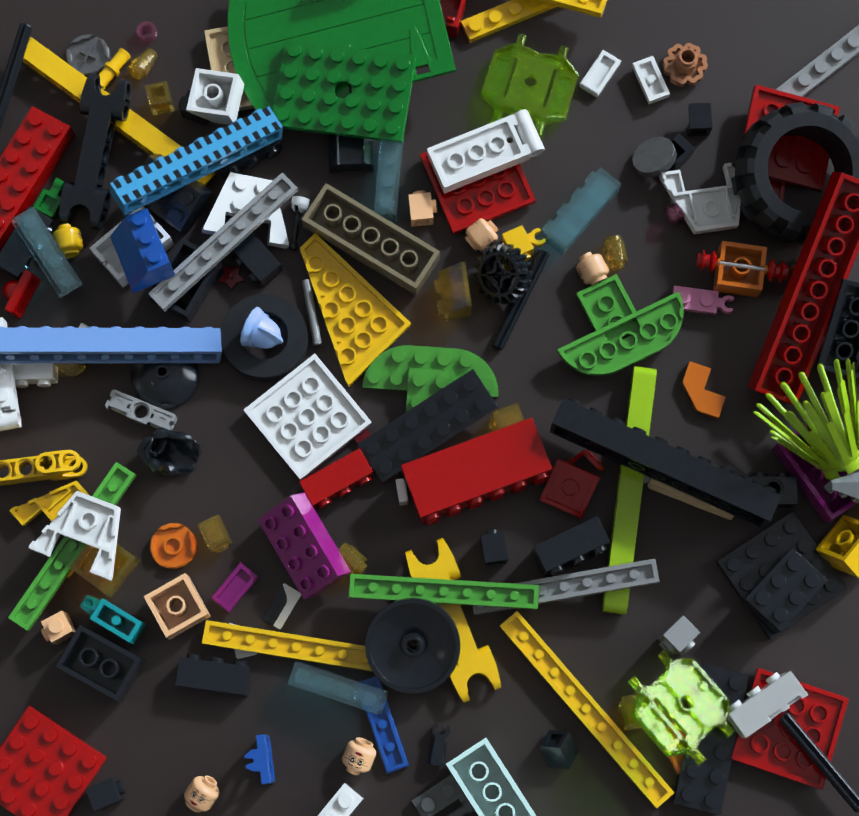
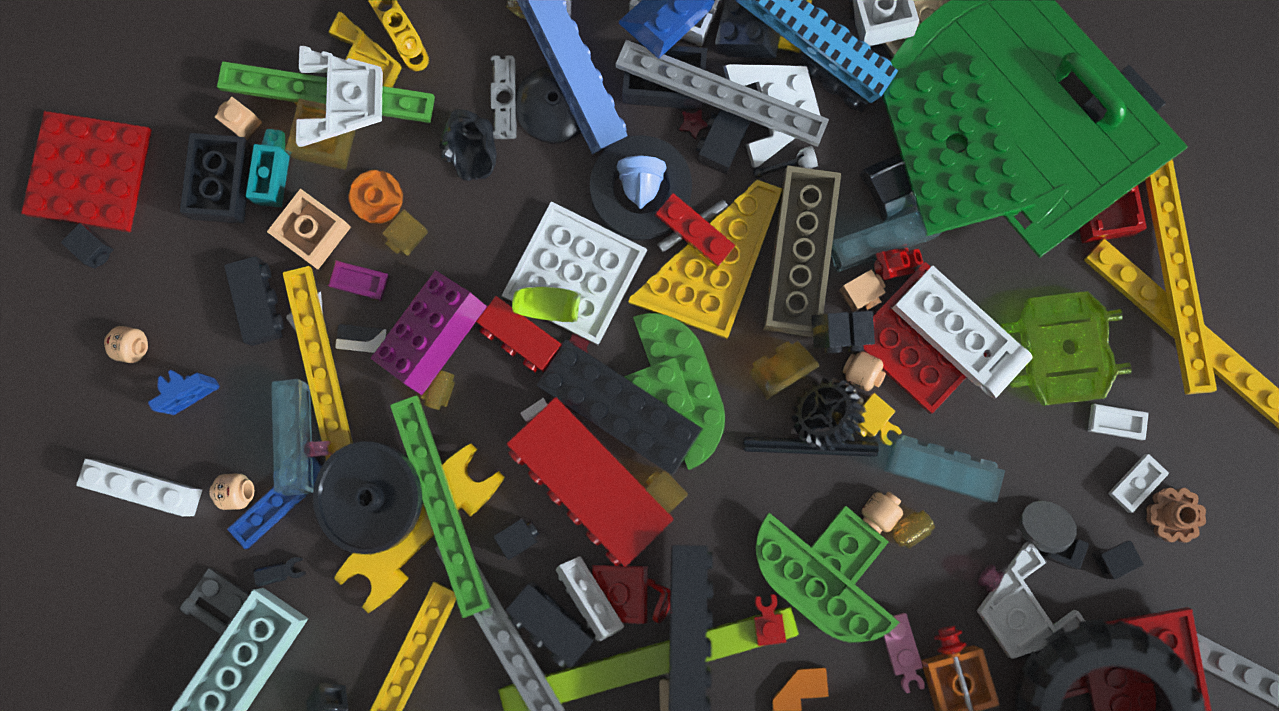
camera: 65 degrees right, 5 degrees up
(318, 309) = (695, 230): none -> red plate
(325, 441) = (547, 303): none -> lime piece
(357, 669) = (318, 449): none -> clear pink bush
(411, 174) = (897, 262): none -> red hips
(445, 234) = (843, 329): none -> black piece
(563, 510) = (589, 598): none -> white plate
(641, 386) = (769, 626): none -> red plate

